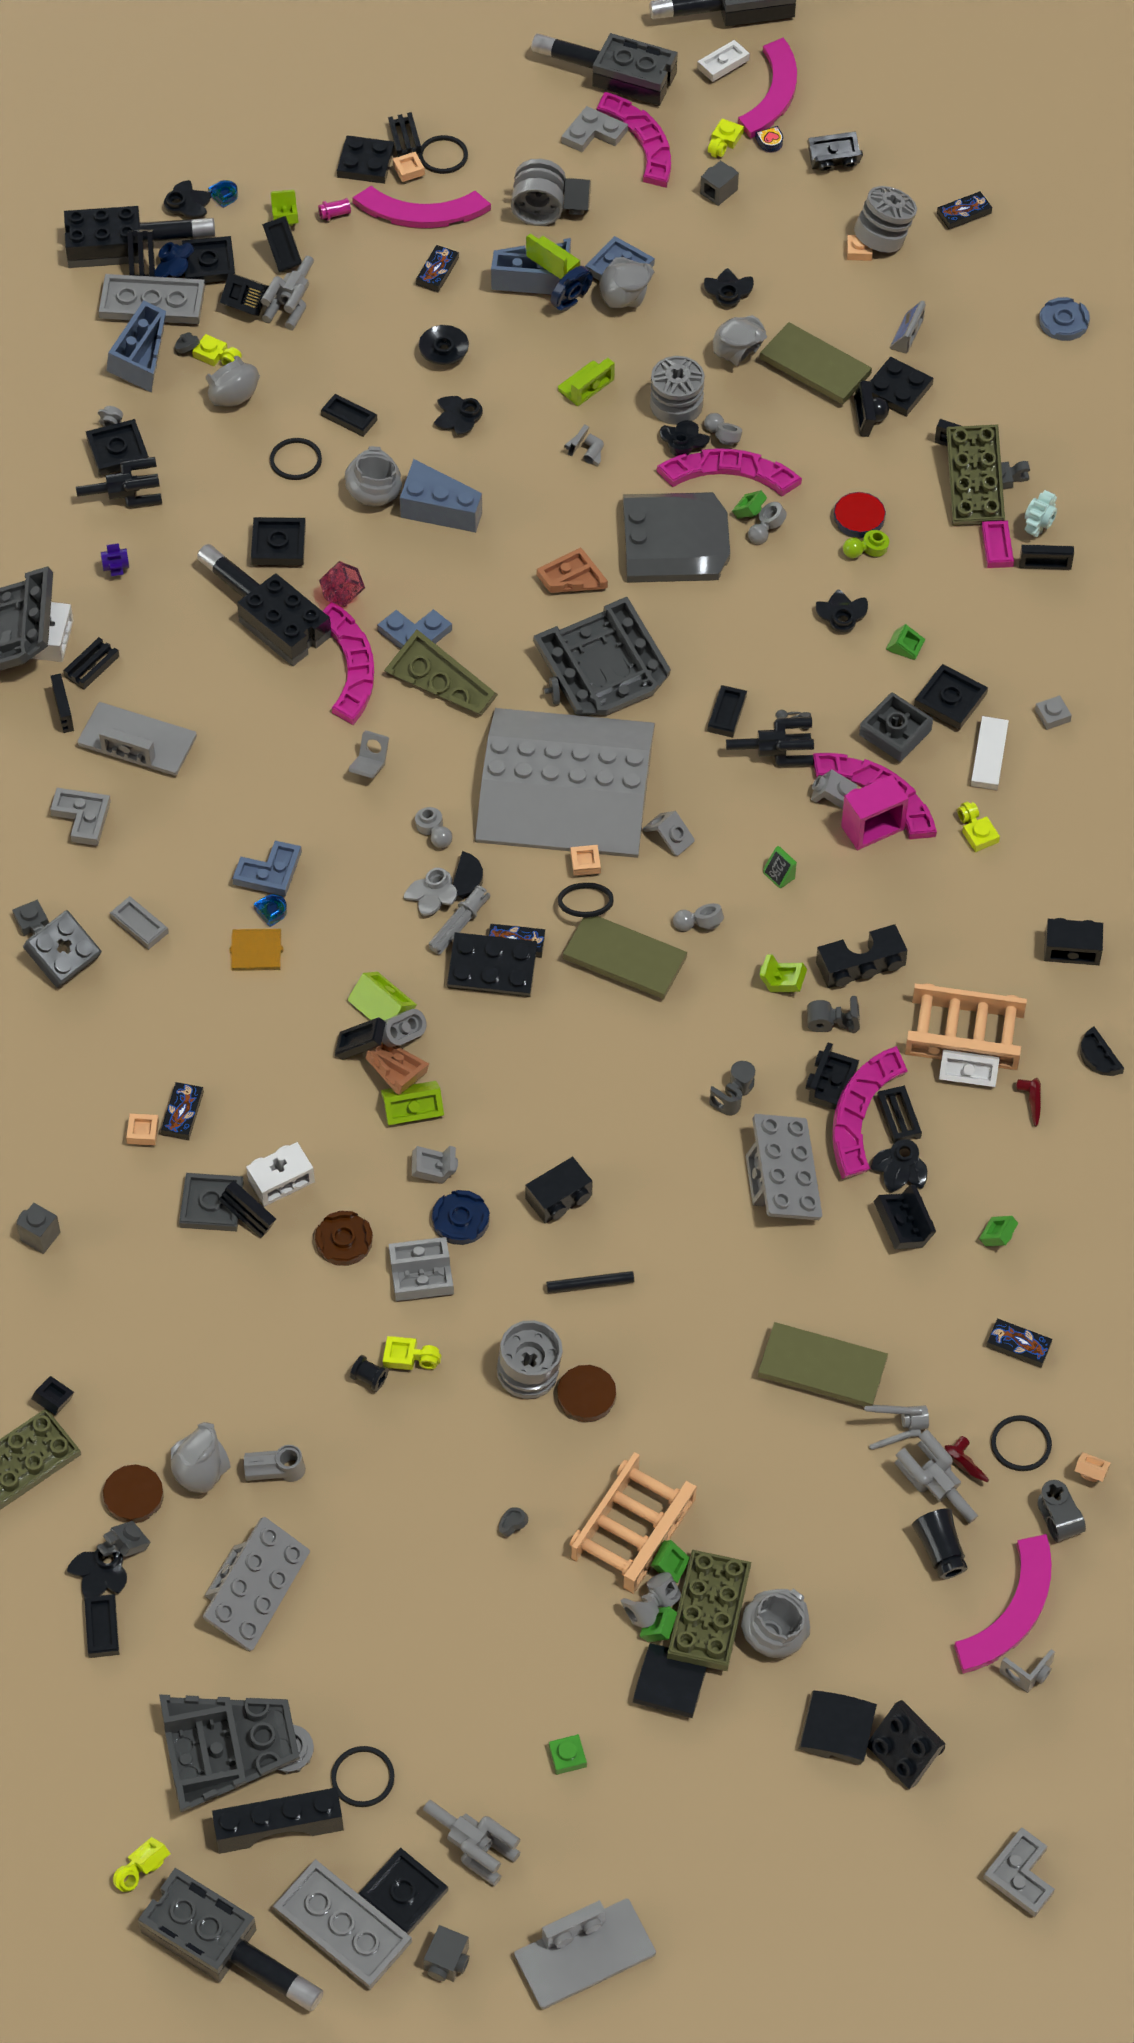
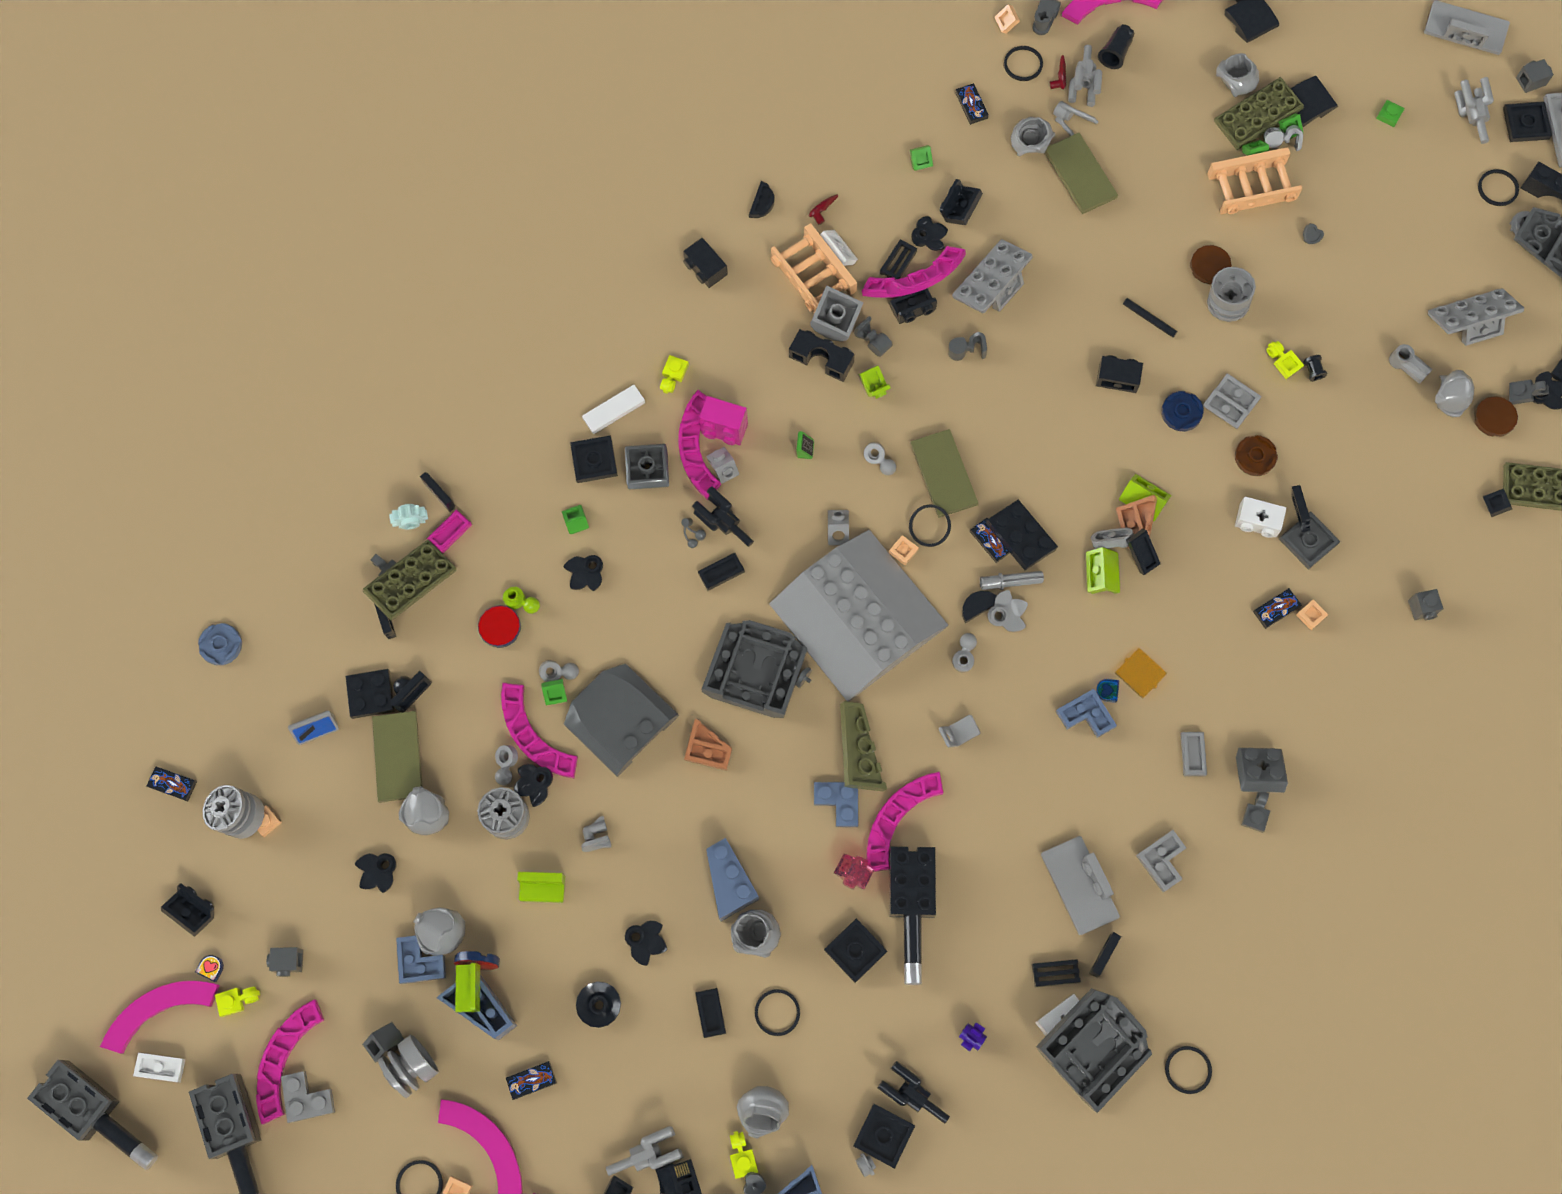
camera: 130 degrees left, 15 degrees up
(434, 1164) = (1170, 448): light grey bracket -> none
(891, 993) = (835, 315): none -> light grey brick
(912, 1347) = (1031, 136): none -> light grey helmet
(1053, 712) = (551, 400): light grey plate -> none

